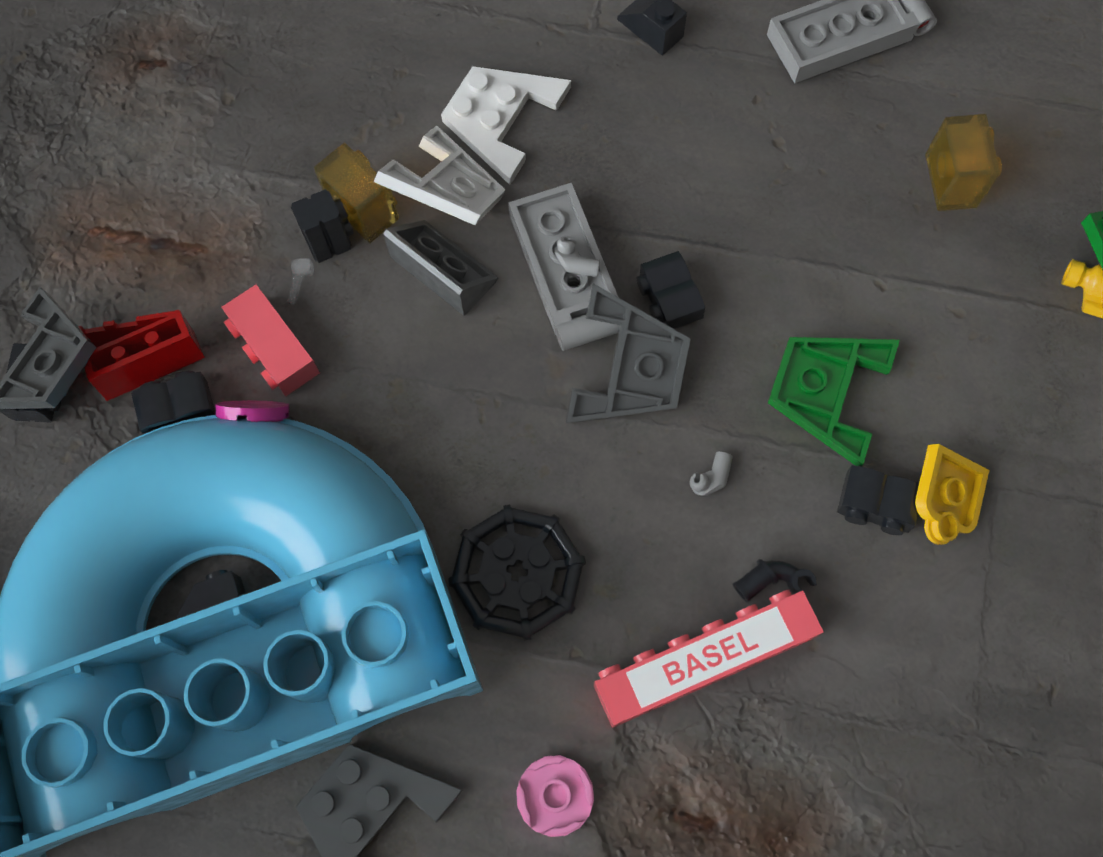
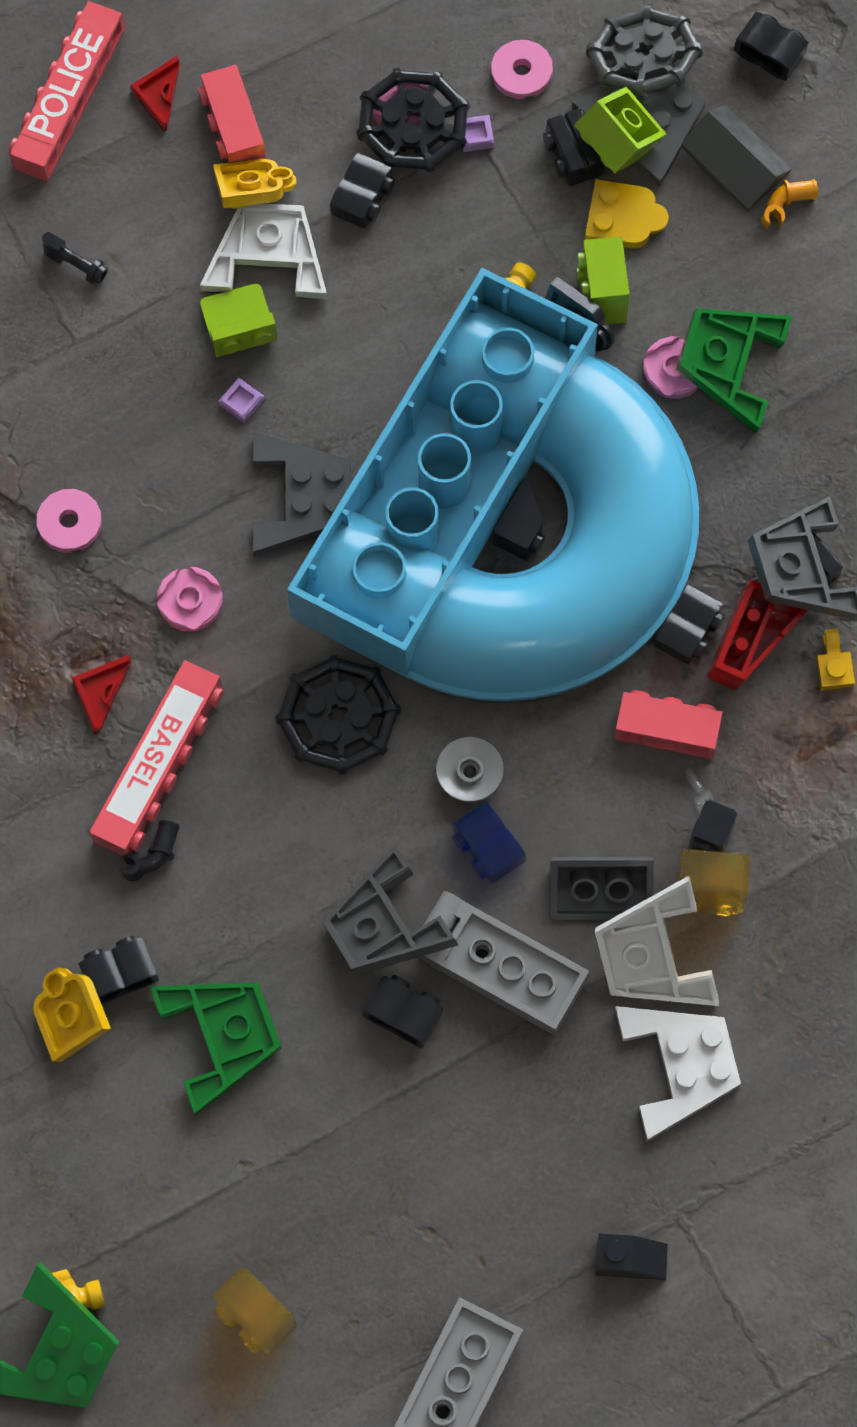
camera: 140 degrees right, 0 degrees up
(104, 287) = (833, 667): none -> yellow plate
(253, 410) = (623, 661): dark pink tile -> none
(448, 416) = (464, 755): none -> light grey dish
(492, 363) = (488, 842): none -> clear blue brick
(571, 259) = (492, 956): light grey arm -> none
(707, 776) = (99, 689): none -> red tile
(715, 479) = (253, 891): light grey arm -> none

